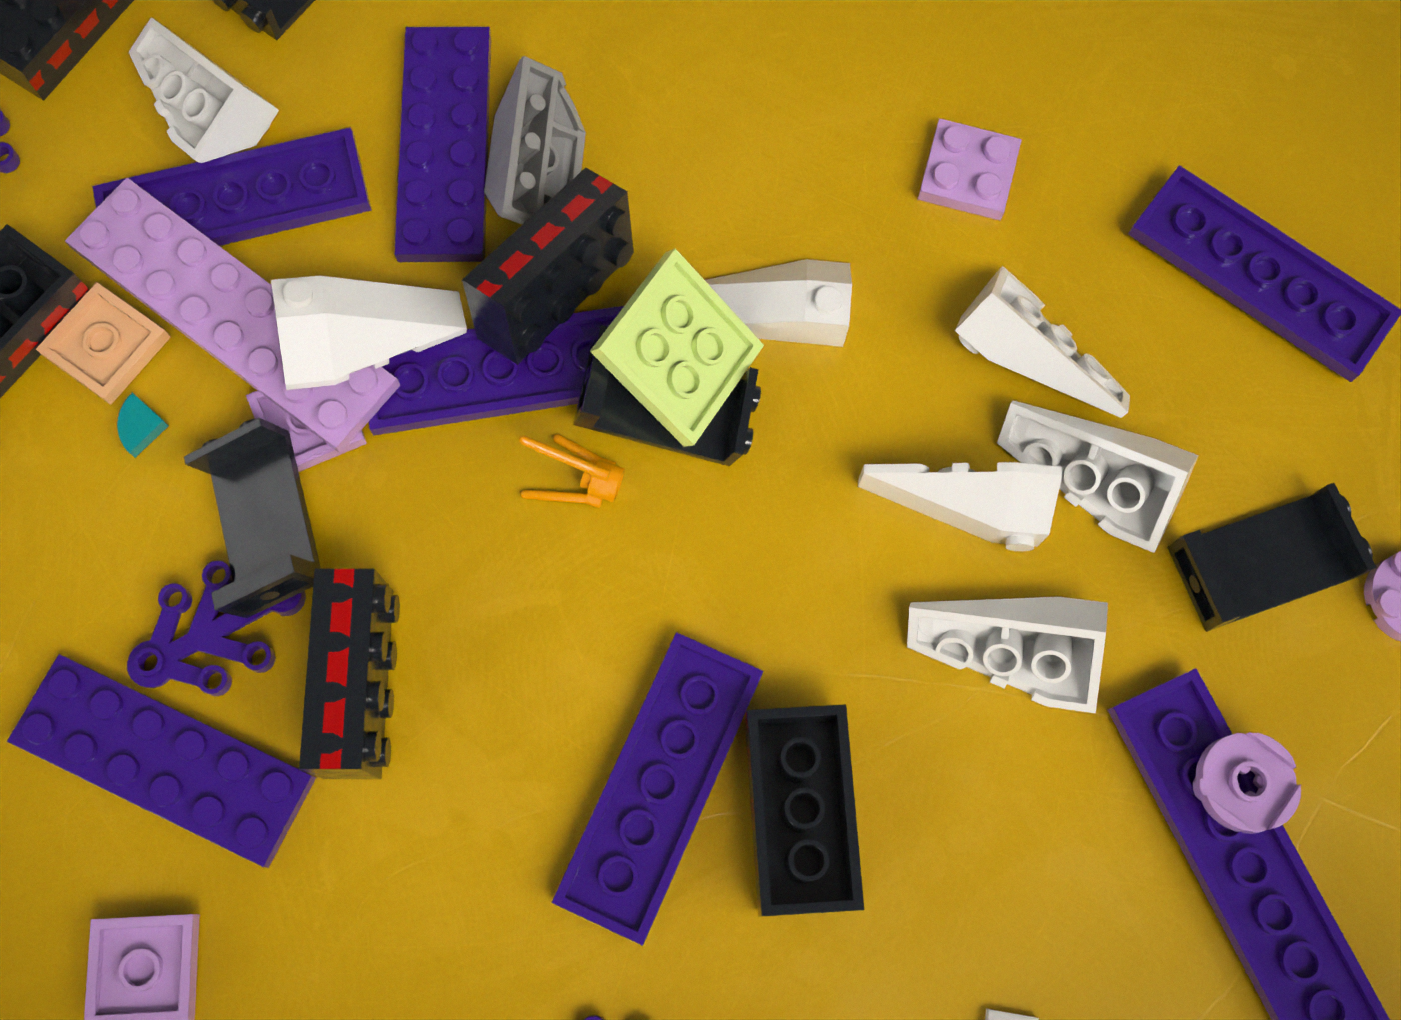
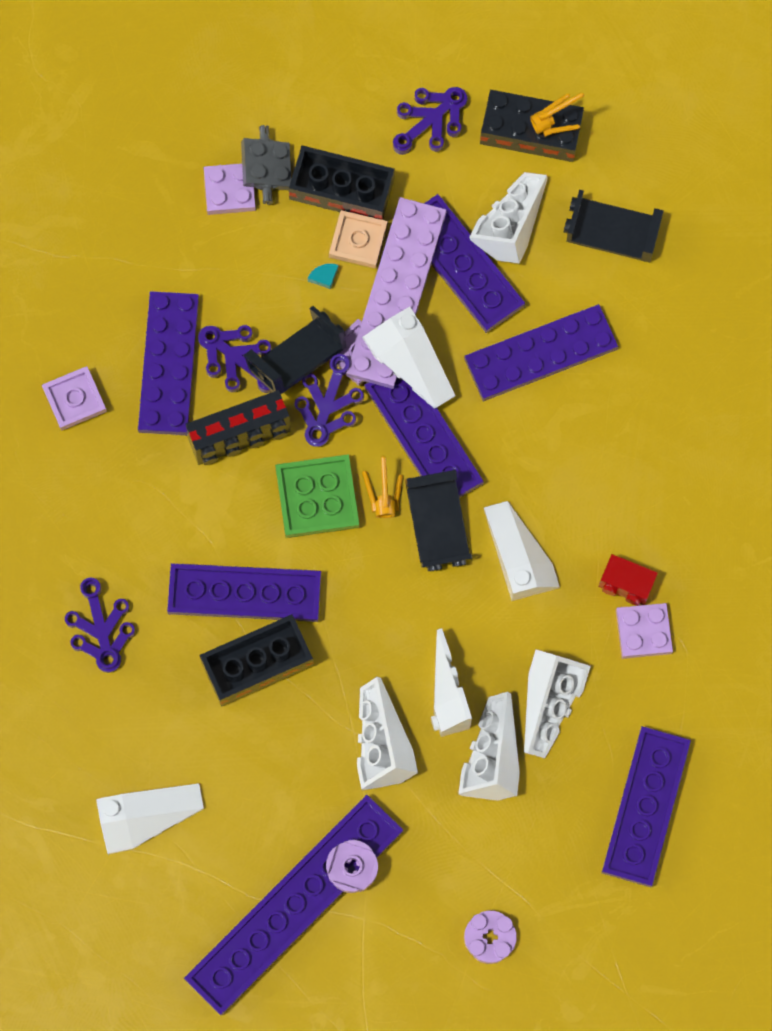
camera: 70 degrees right, 0 degrees up
(376, 506) = (327, 404): none -> dark purple plant
(533, 142) = (549, 401): light grey wedge -> none
(533, 588) = (317, 496): none -> bright green plate
(550, 265) = (482, 434): black brick -> none
(678, 348) = (462, 513): yellowish green plate -> none
(882, 156) = (627, 580): none -> red brick
(1271, 558) = (479, 854): black panel -> none

